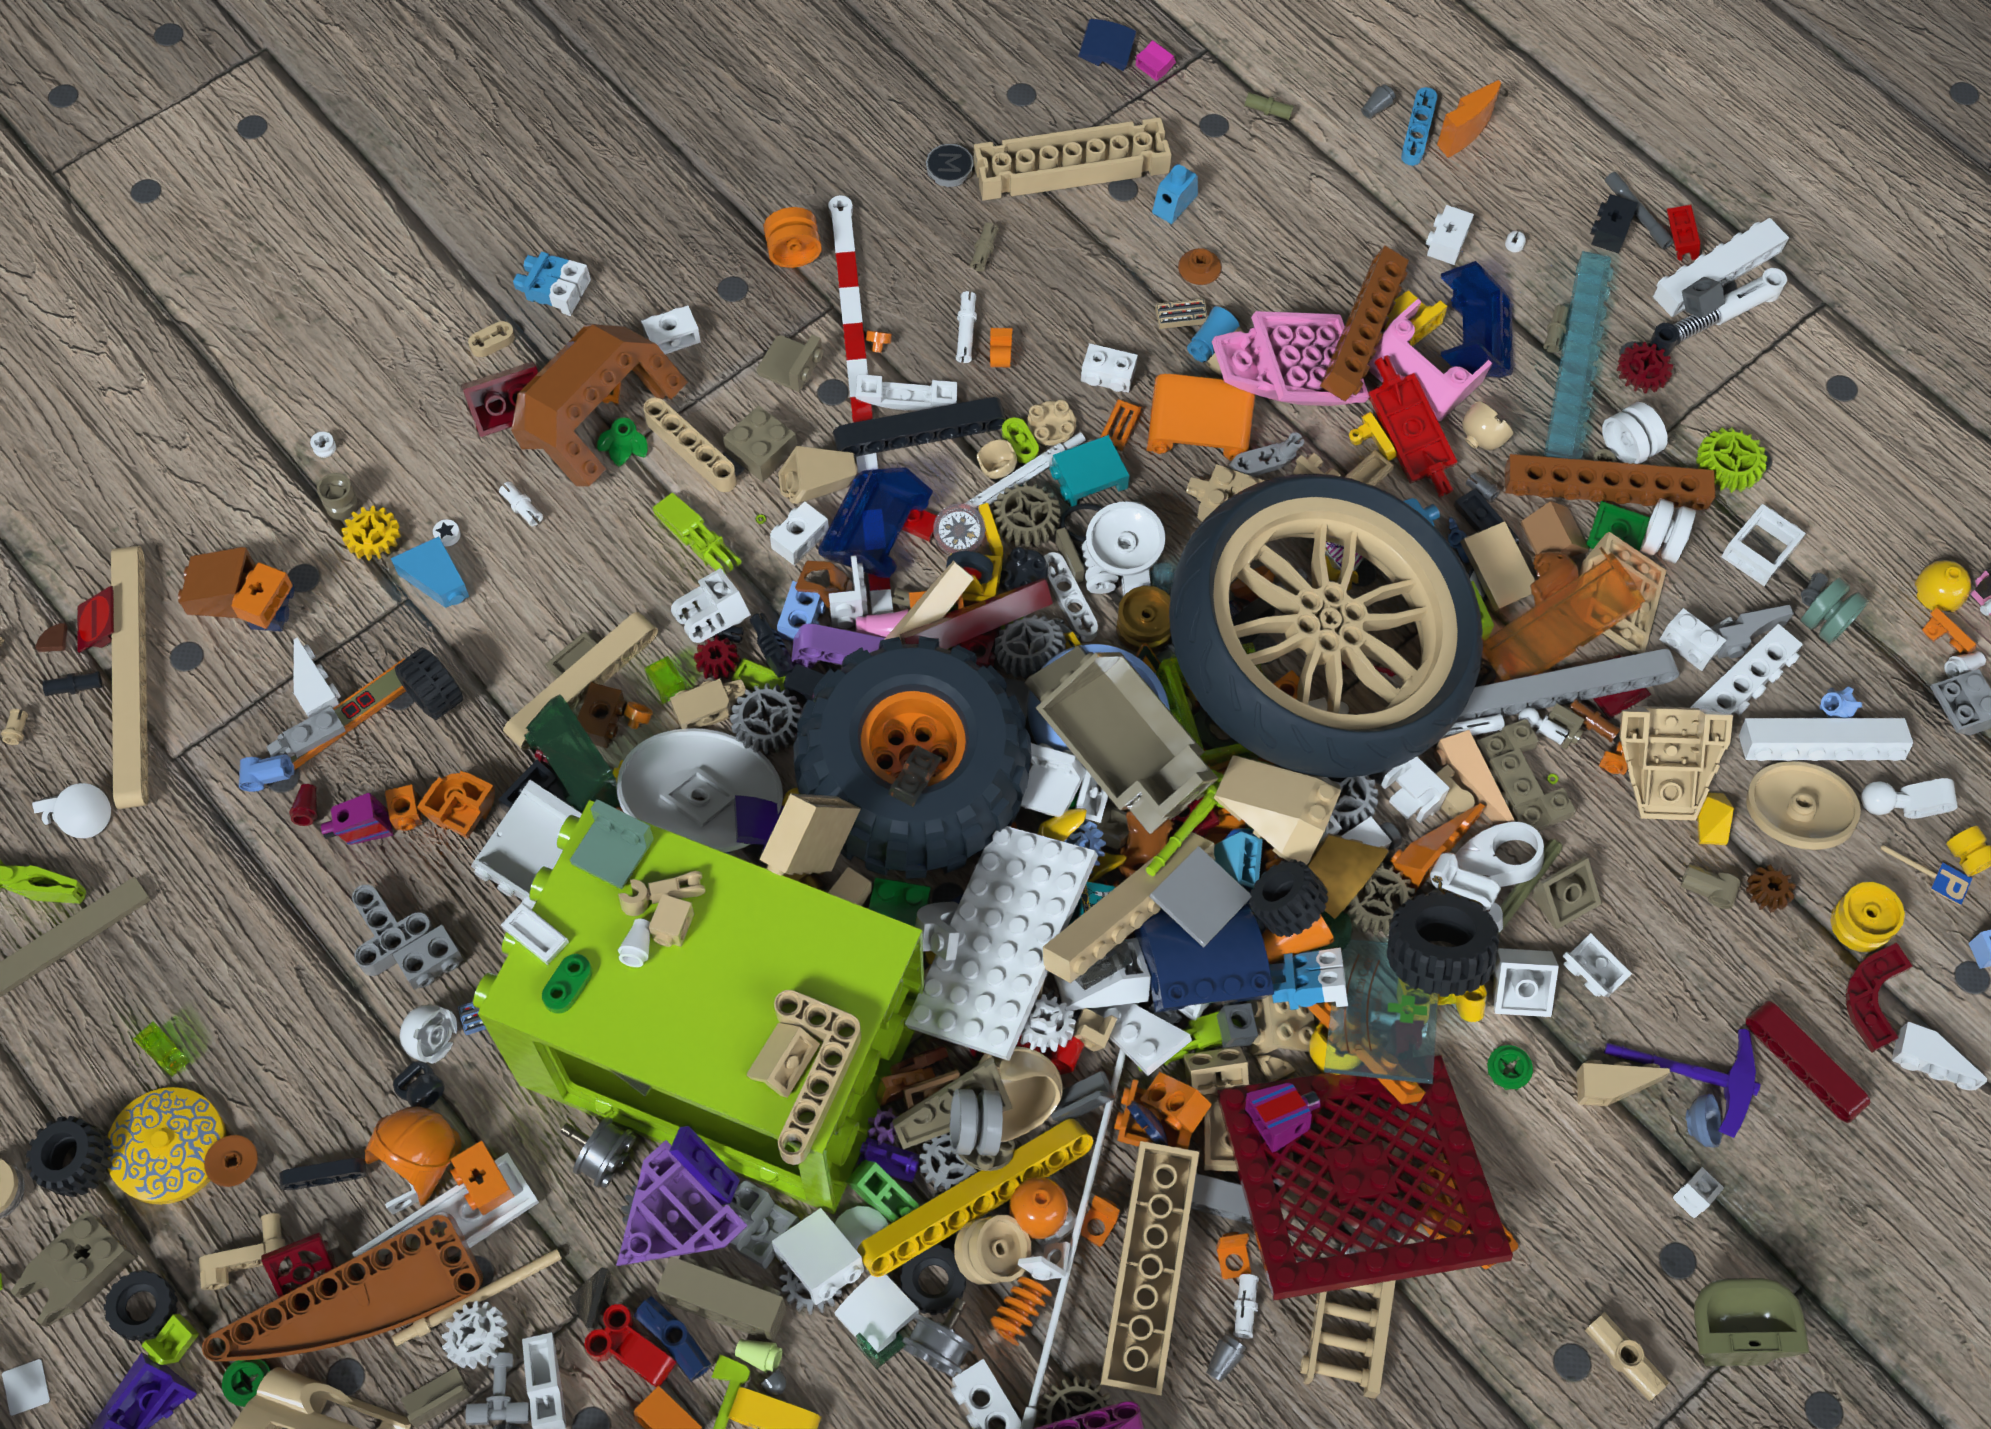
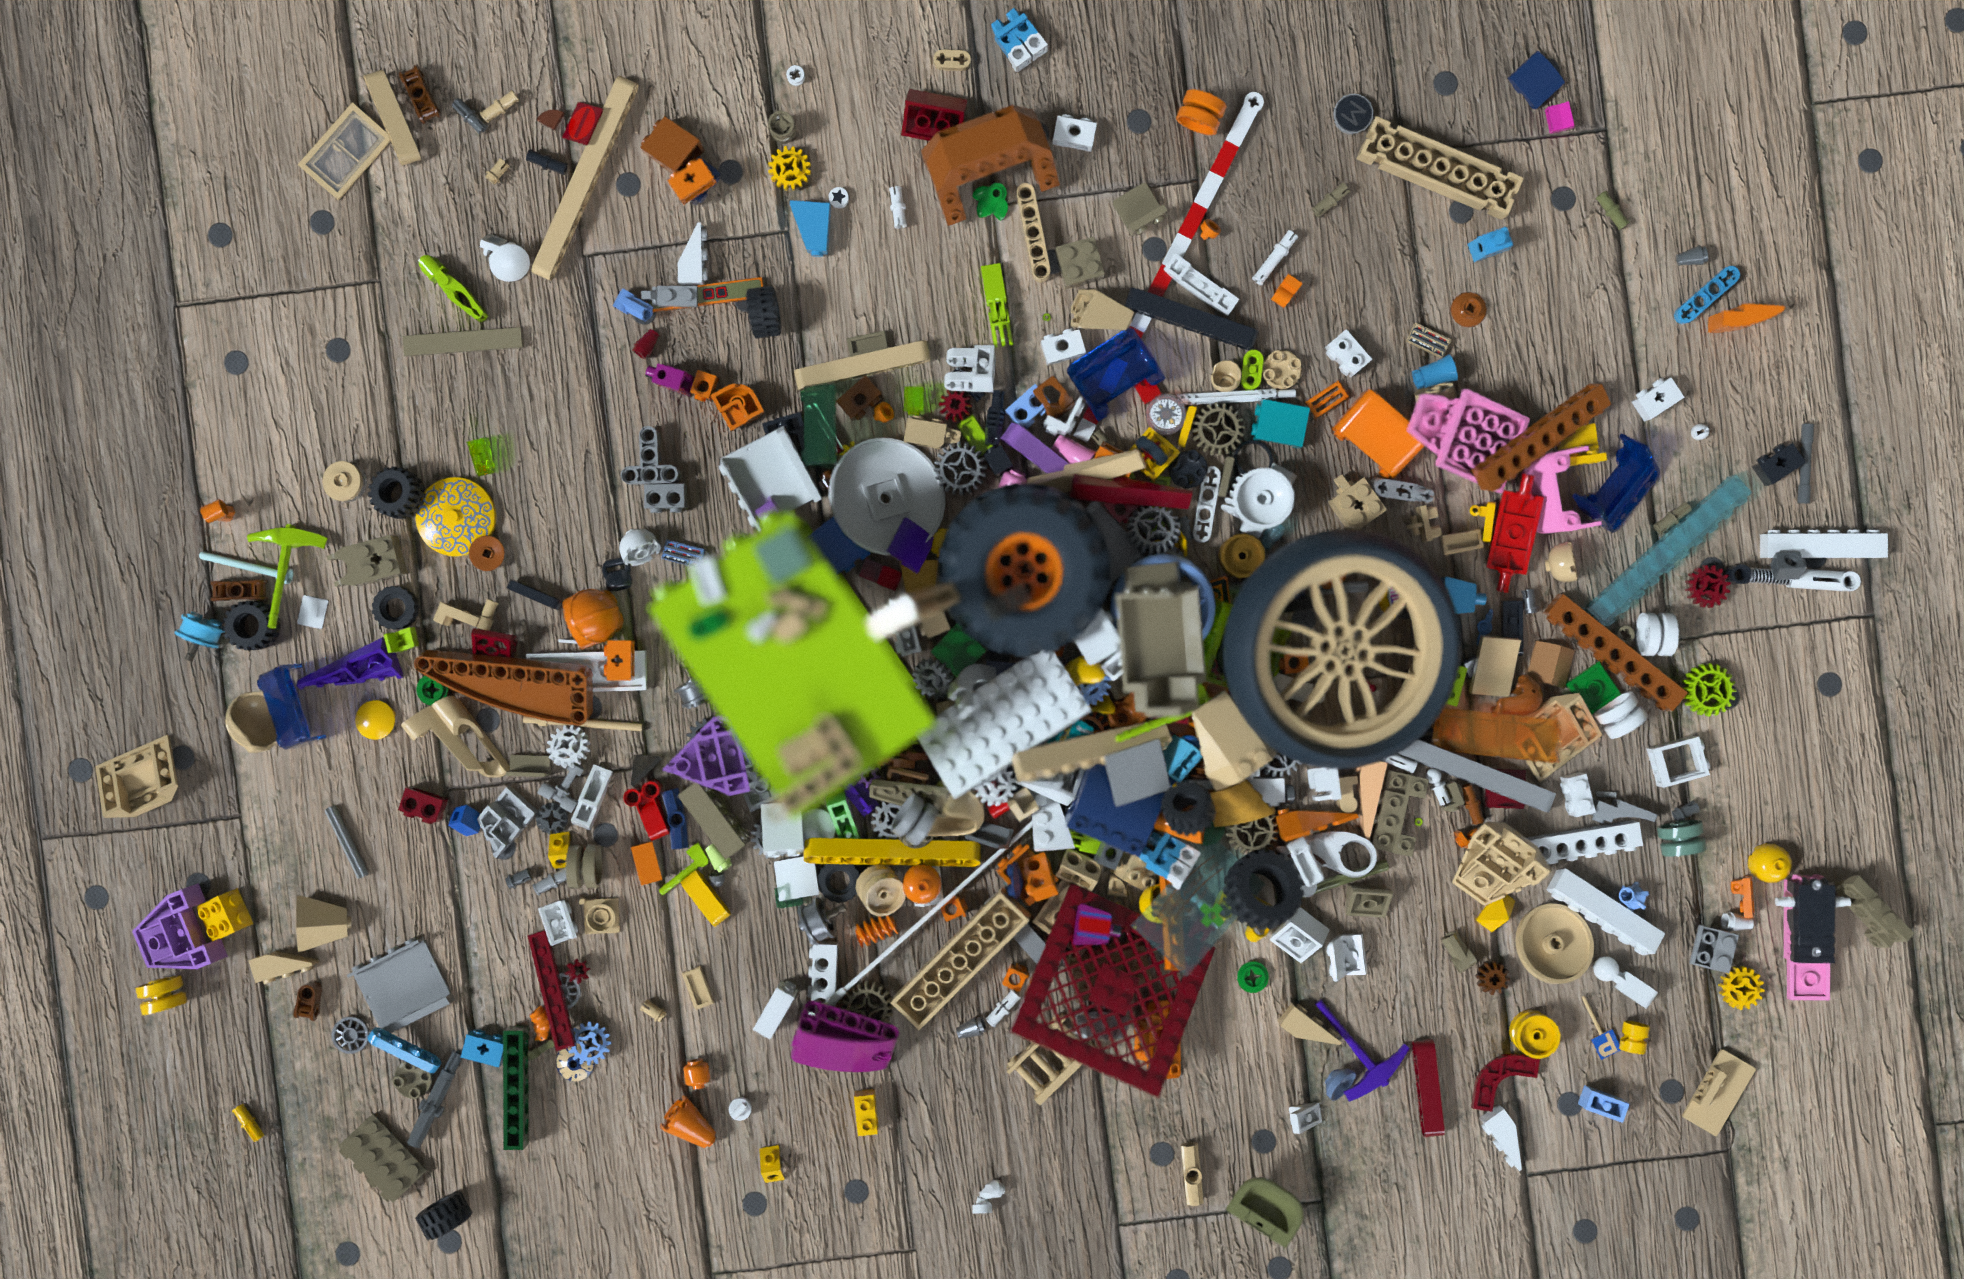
camera: 30 degrees right, 25 degrees up
(1042, 1268) = (904, 919): white bracket -> none
(1684, 231) = (1820, 502): red hinge -> none

